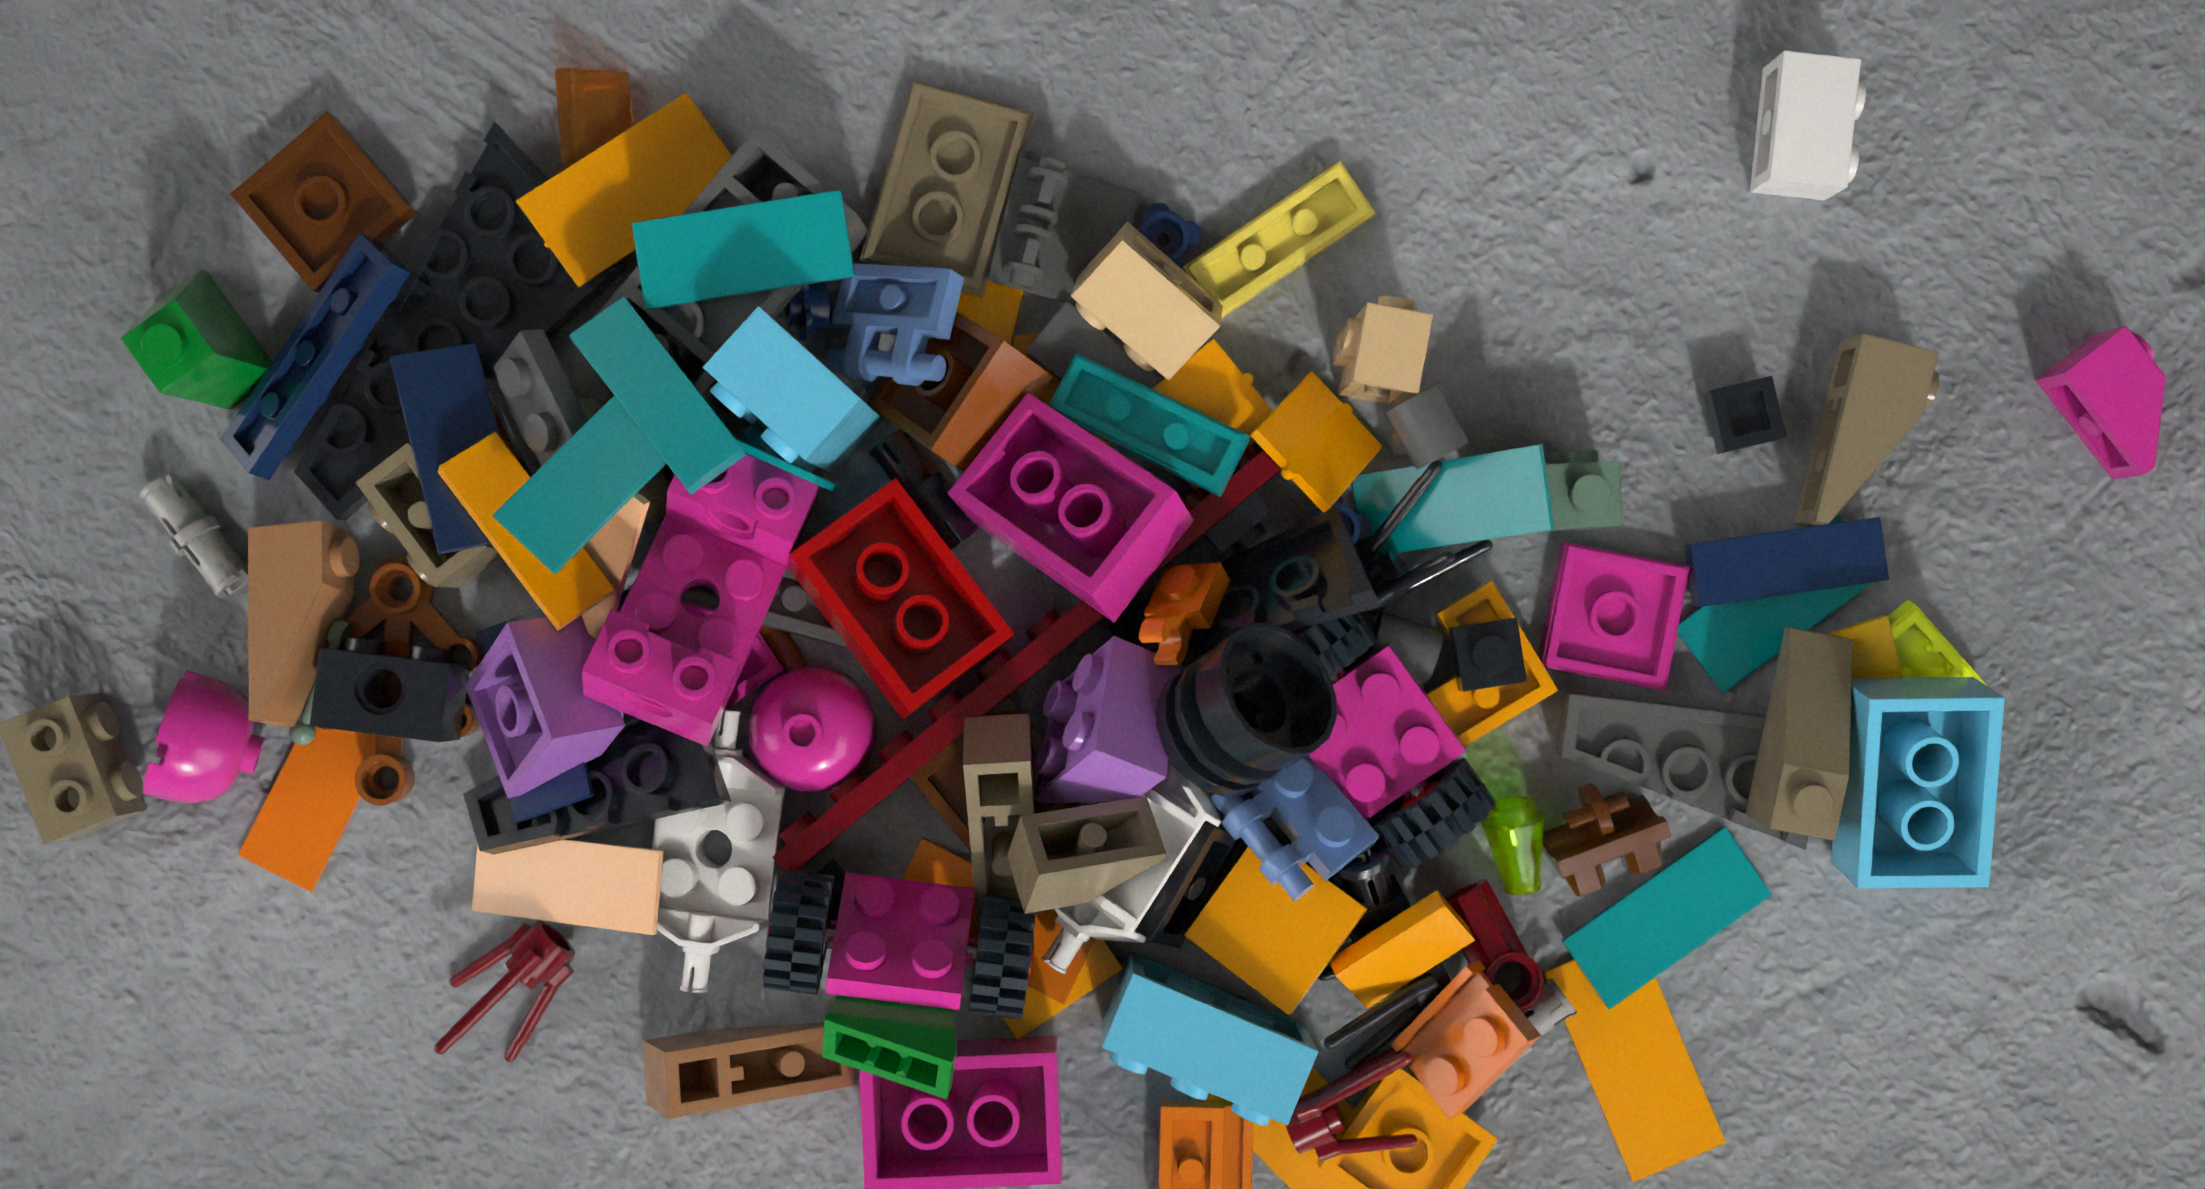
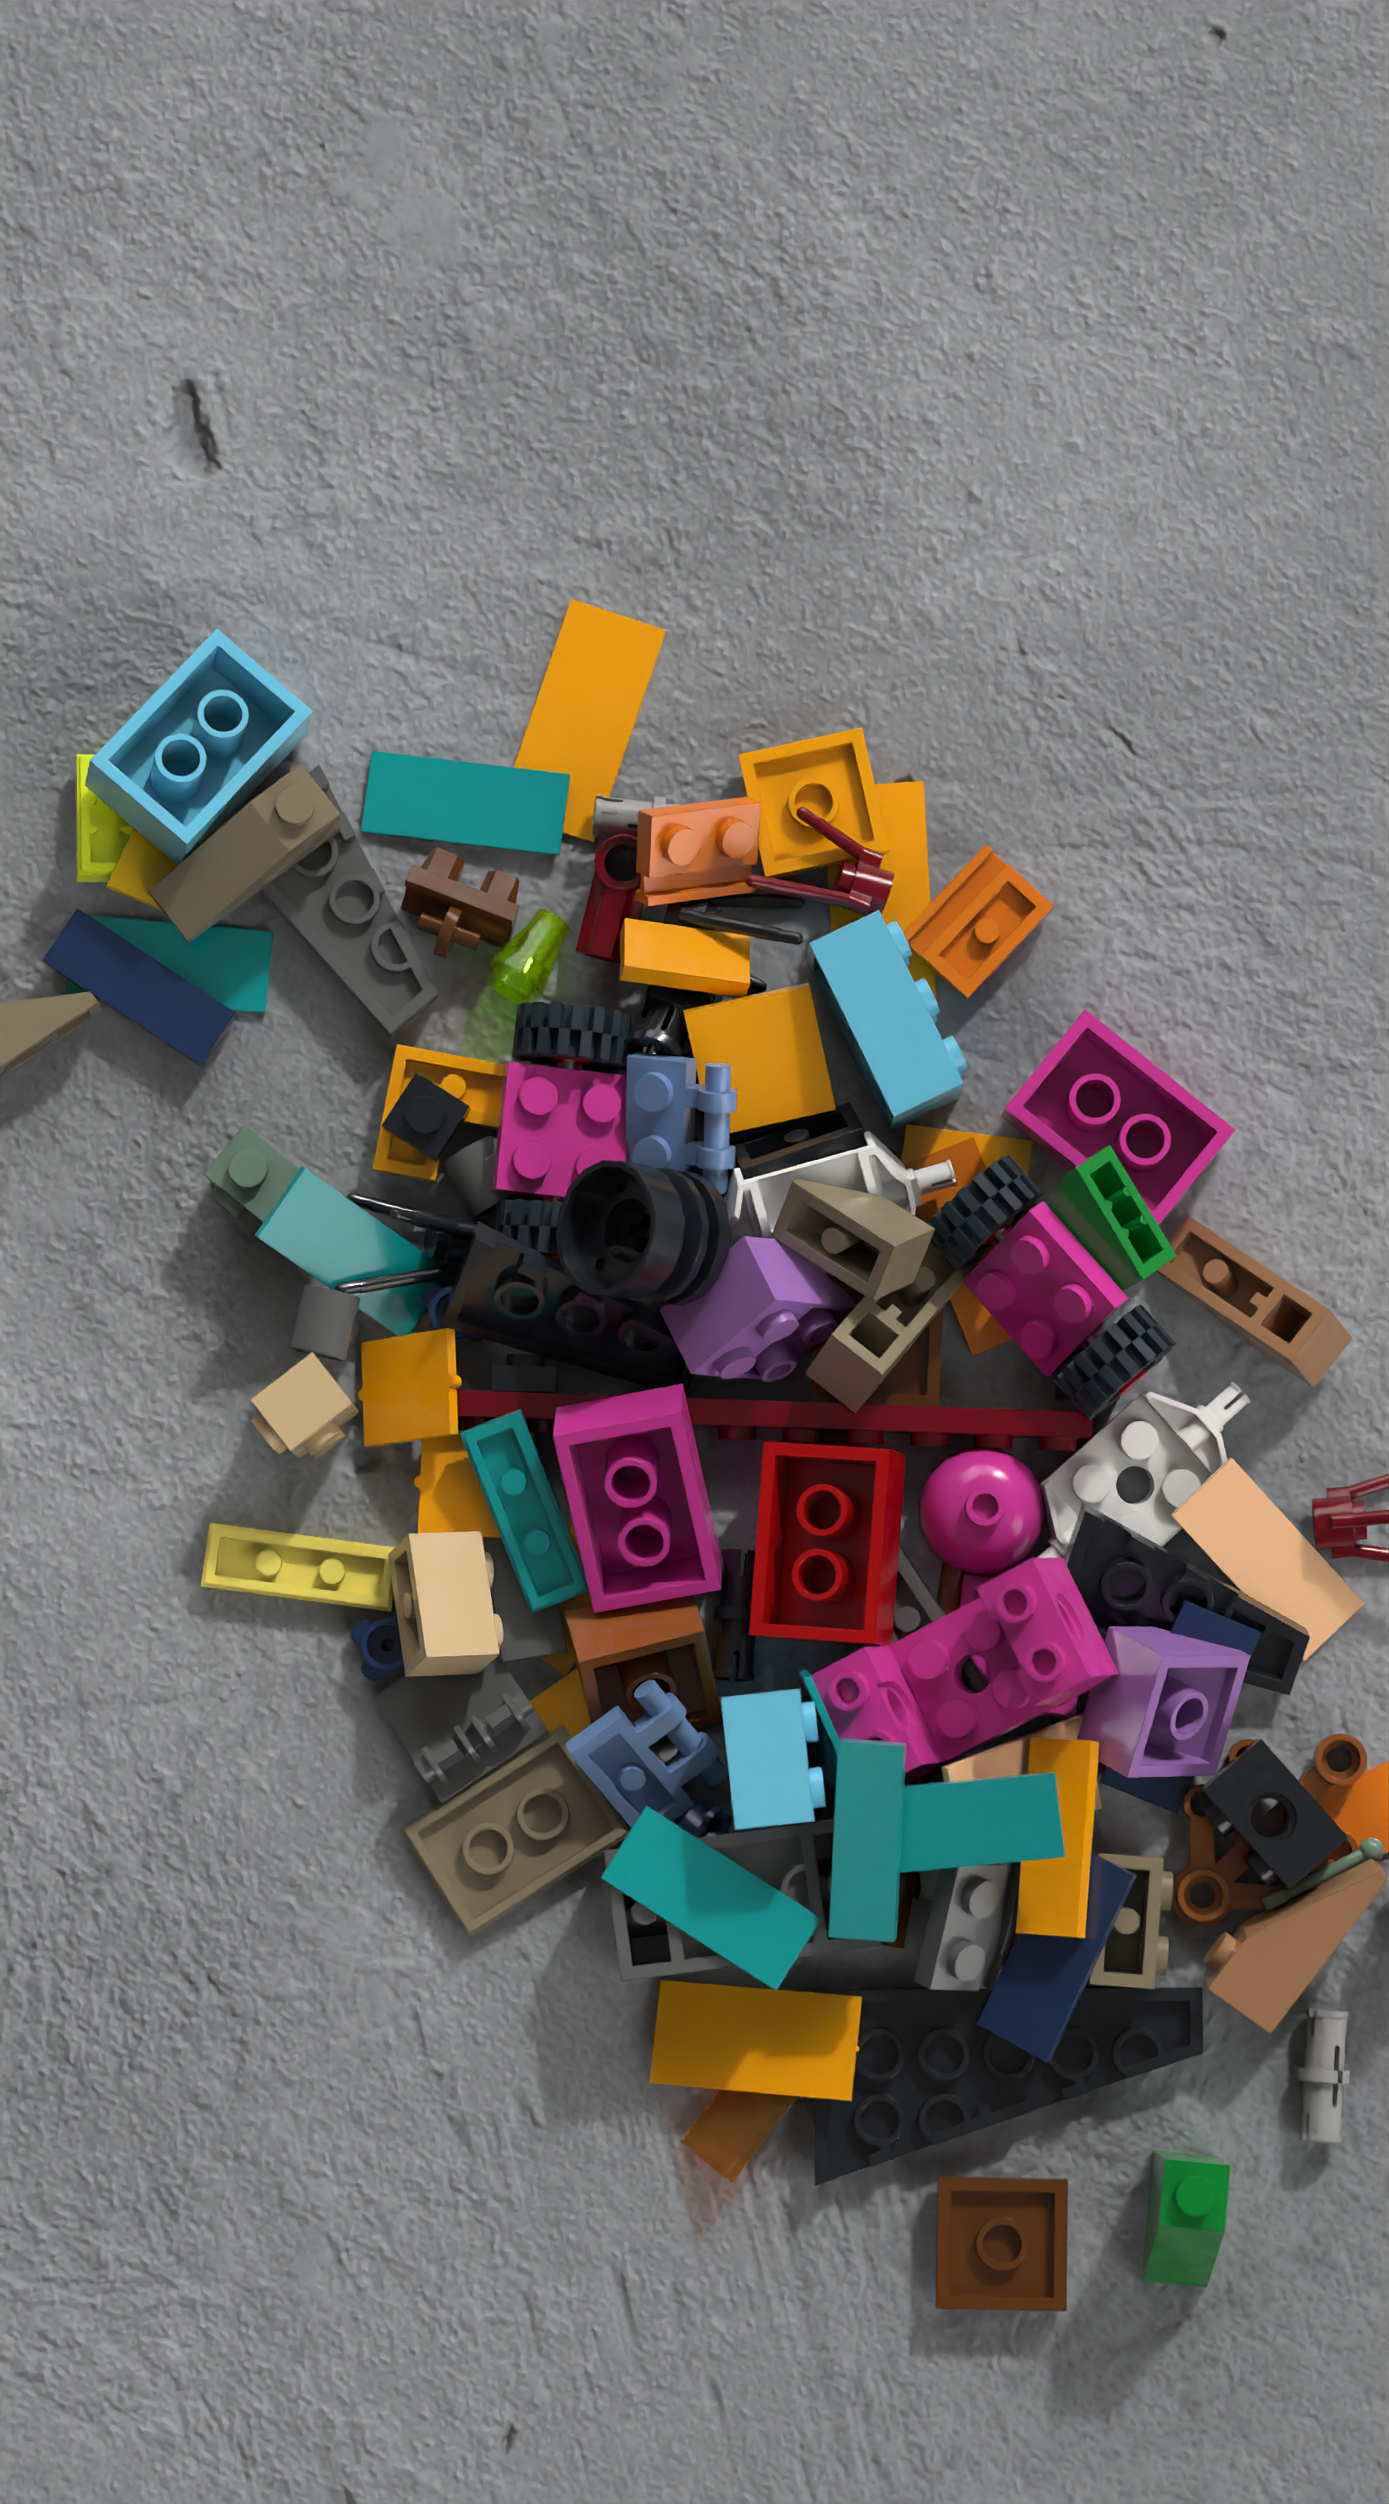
camera: 135 degrees left, 5 degrees down
(315, 356) = (1109, 2125): dark blue plate -> none
(1182, 601) = (619, 1355): orange plate -> none
(1613, 616) = (303, 1061): dark pink tile -> none
(1744, 415) = (72, 1124): black plate -> none

